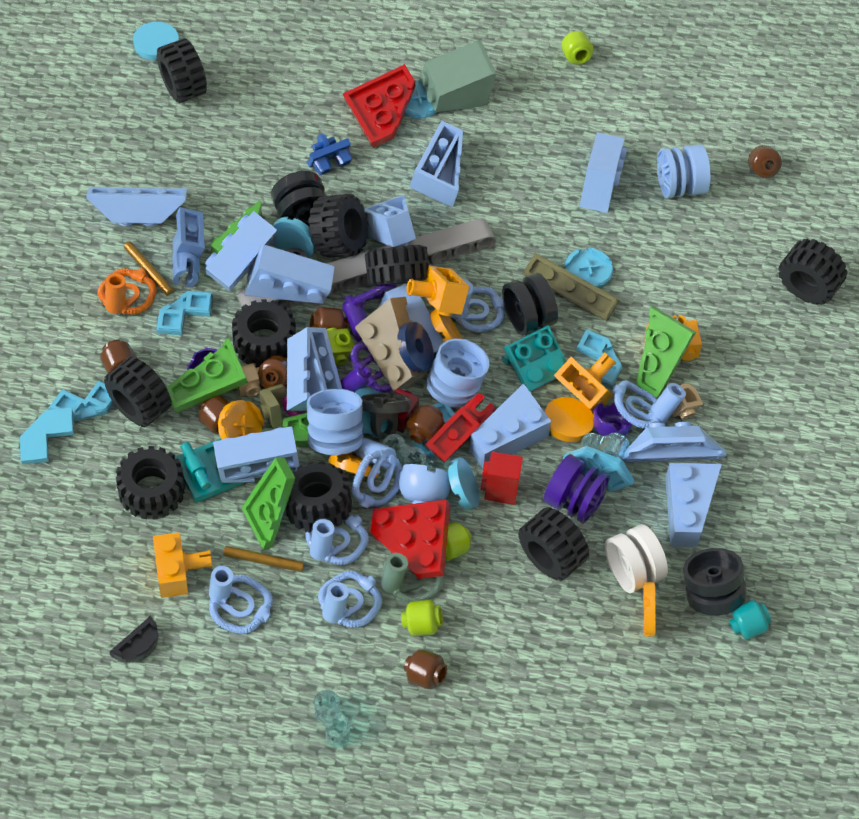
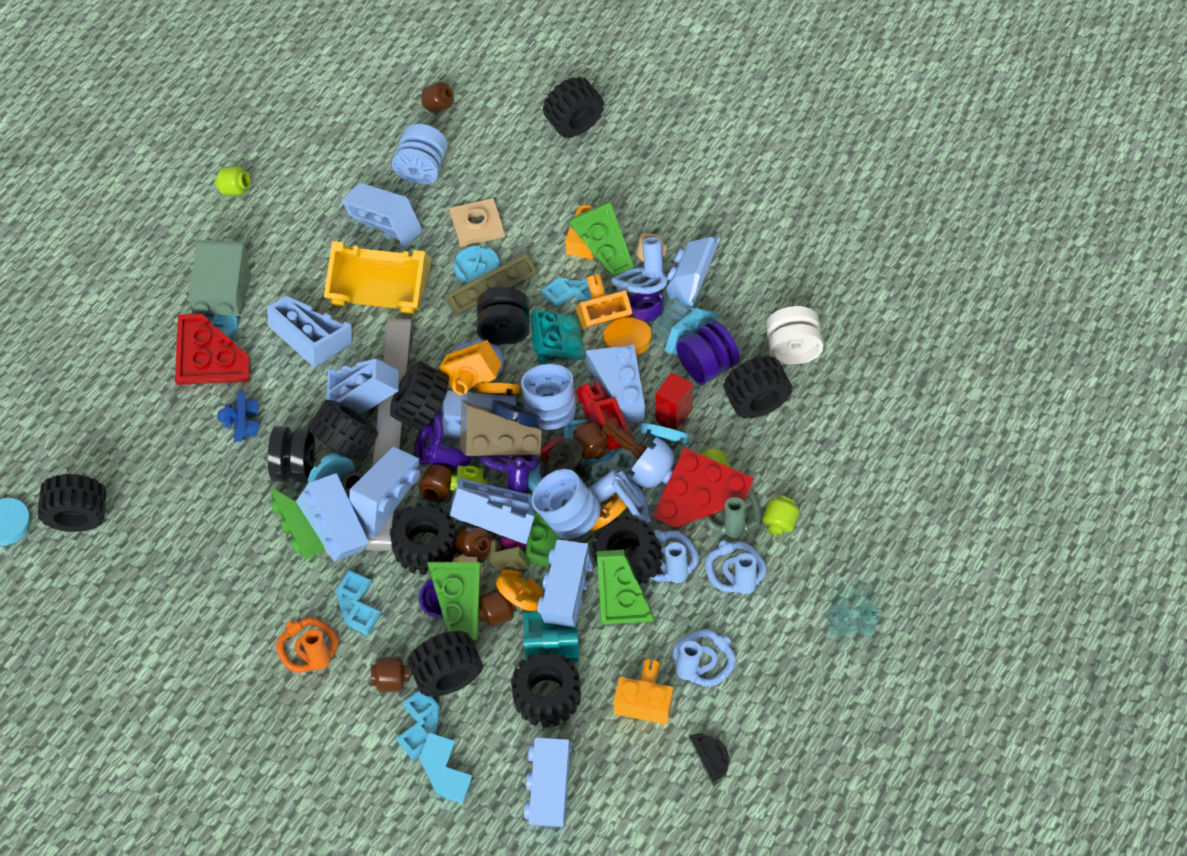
camera: 60 degrees left, 0 degrees up
(59, 515) = (548, 782): none -> light blue wedge
(136, 204) = (211, 595): light blue wedge -> none
(148, 267) = (287, 617): pearl gold bar -> none
(188, 246) = (288, 570): medium blue plate -> none
(262, 558) = (663, 624): pearl gold bar -> none
(425, 669) = (832, 531): reddish brown head -> none
(437, 446) = (624, 438): none -> reddish brown axle
(527, 192) = (376, 277): none -> yellow windscreen
(639, 262) = (470, 233): none -> tan piece
(649, 609) = (845, 344): light orange tile -> none
(688, 500) = (750, 281): light blue wedge -> none
(715, 581) = (838, 290): black wheel -> none
(750, 620) = (876, 284): teal head -> none

